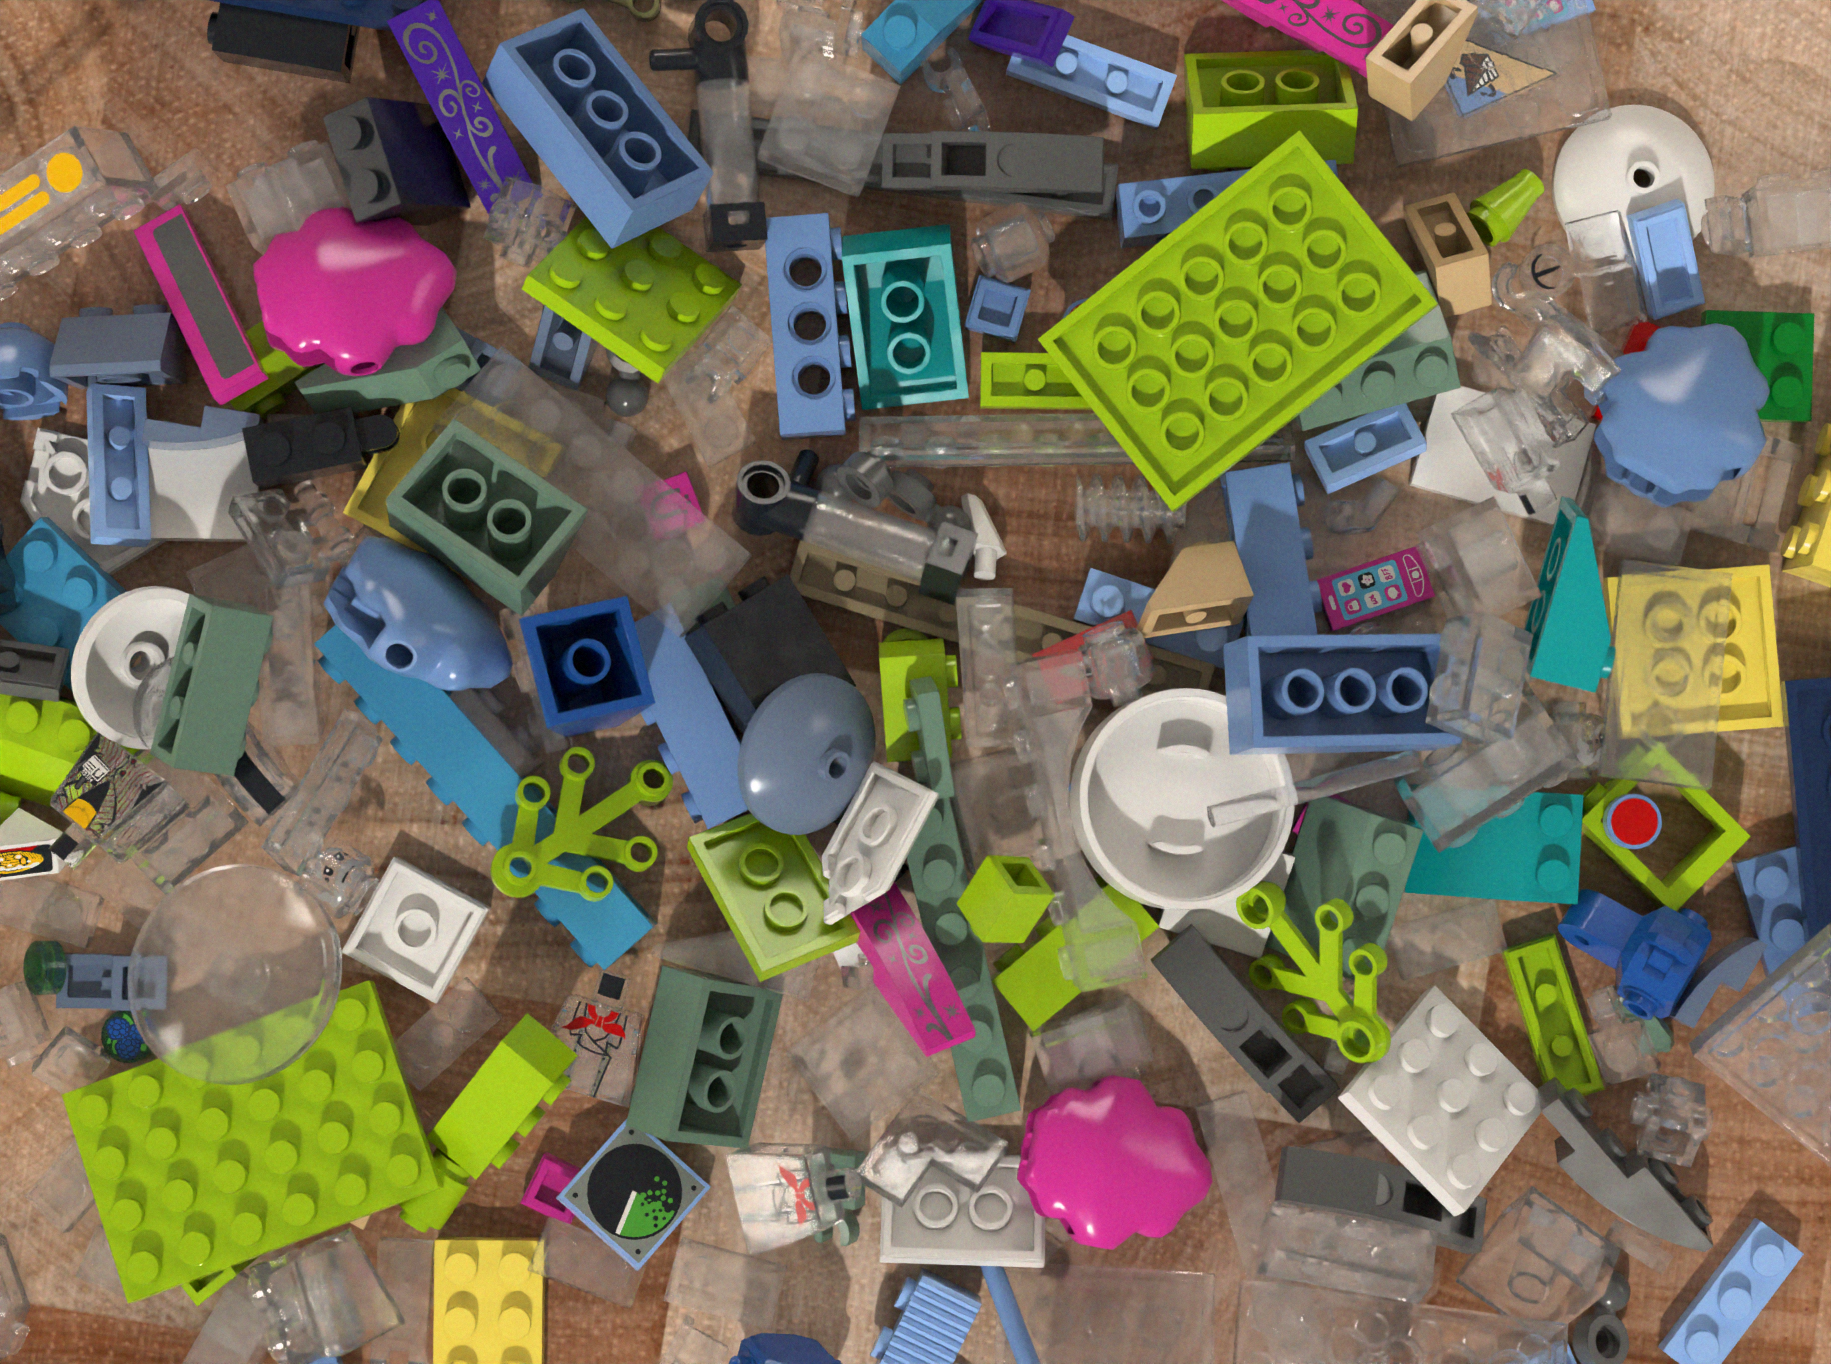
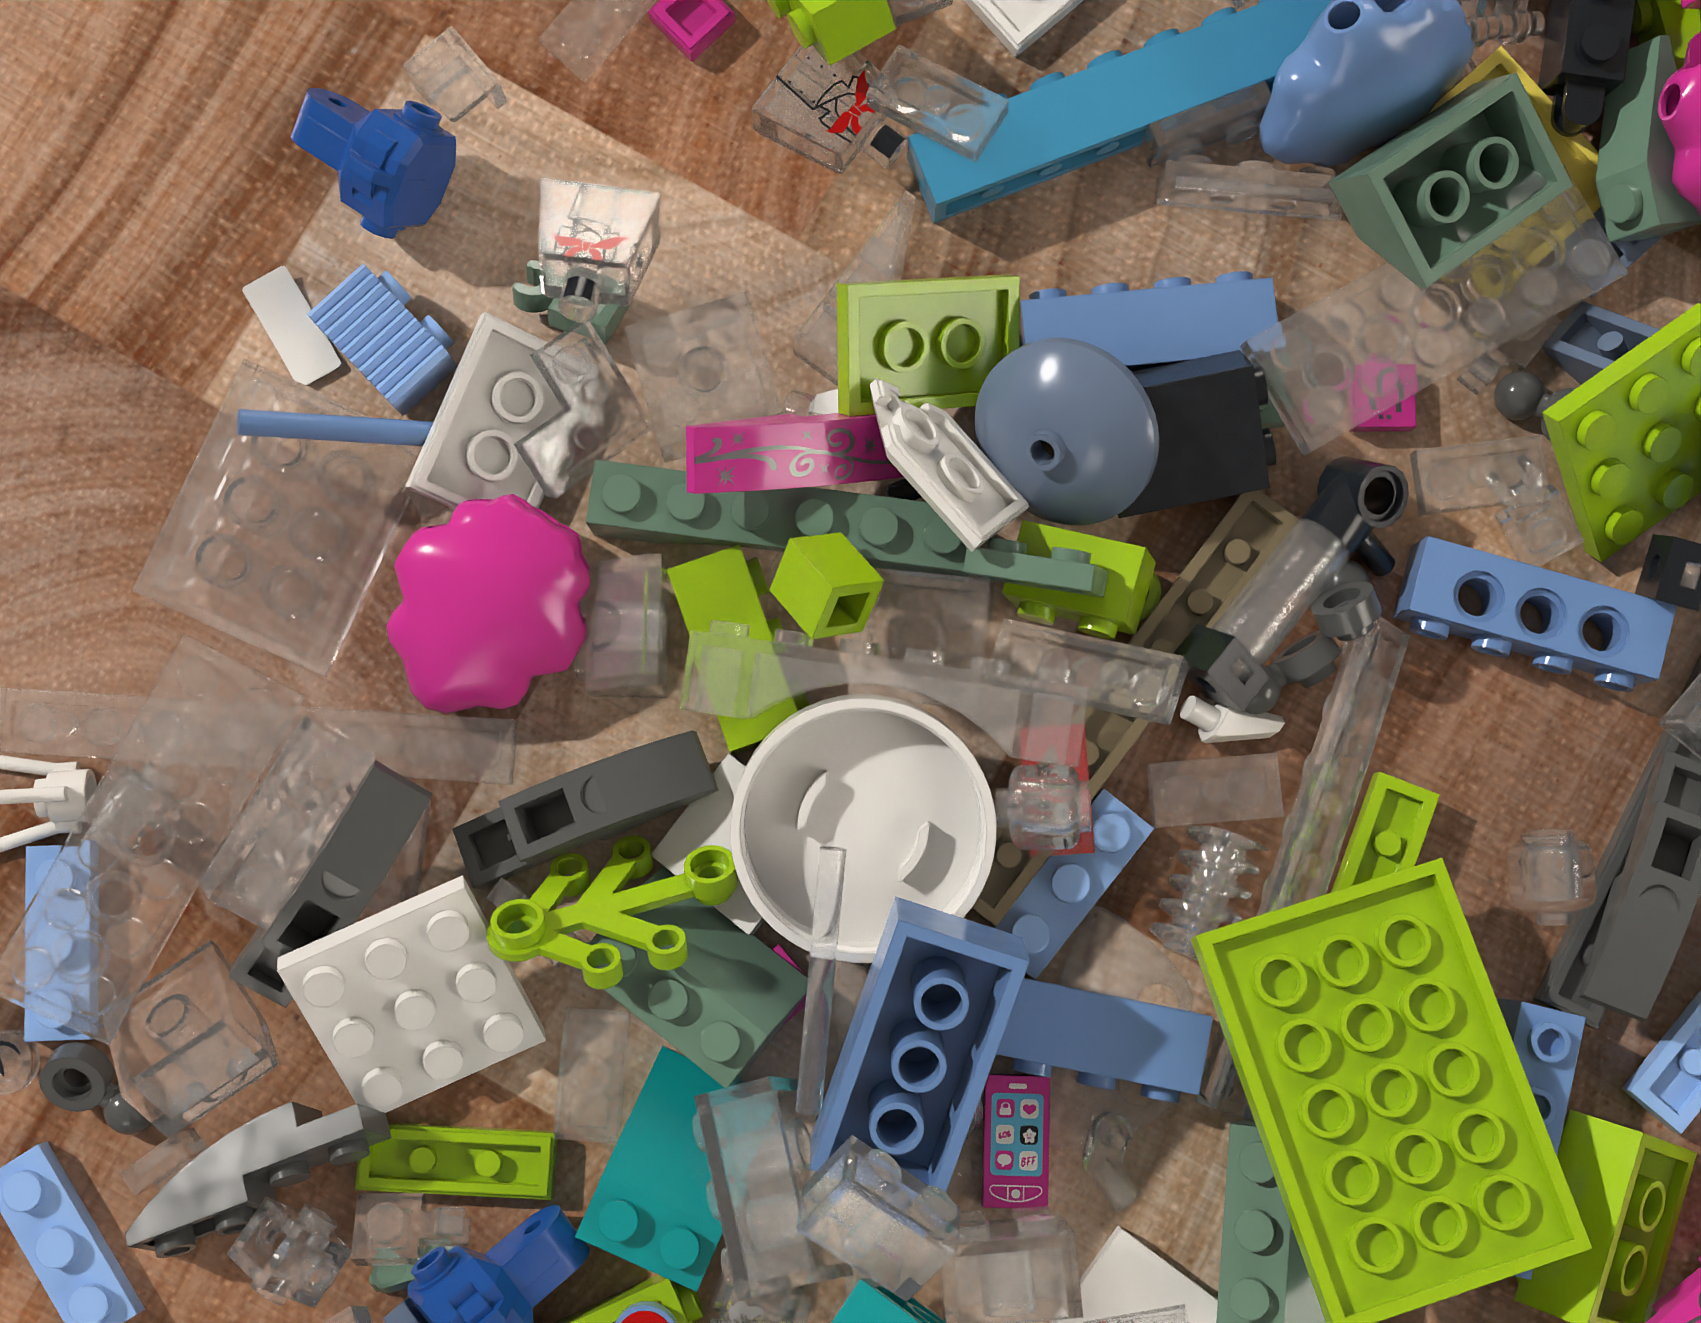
camera: 105 degrees right, 5 degrees down
(573, 956) = (937, 103): none -> clear plate
(575, 832) = (1070, 158): lime plant -> none
(587, 666) = (1253, 216): blue slope -> none
(633, 1193) = (657, 87): tile -> none
(703, 1059) = (769, 211): sand green slope -> none
(725, 1283) = (523, 143): clear brick -> none
(905, 316) = (1508, 725): teal slope -> none
(997, 309) = (1478, 833): medium blue tile -> none
(1042, 530) = (1214, 790): none -> clear plate
(1199, 592) = (1088, 933): tan slope -> none
(1365, 446) = (1182, 1191): light blue plate -> none

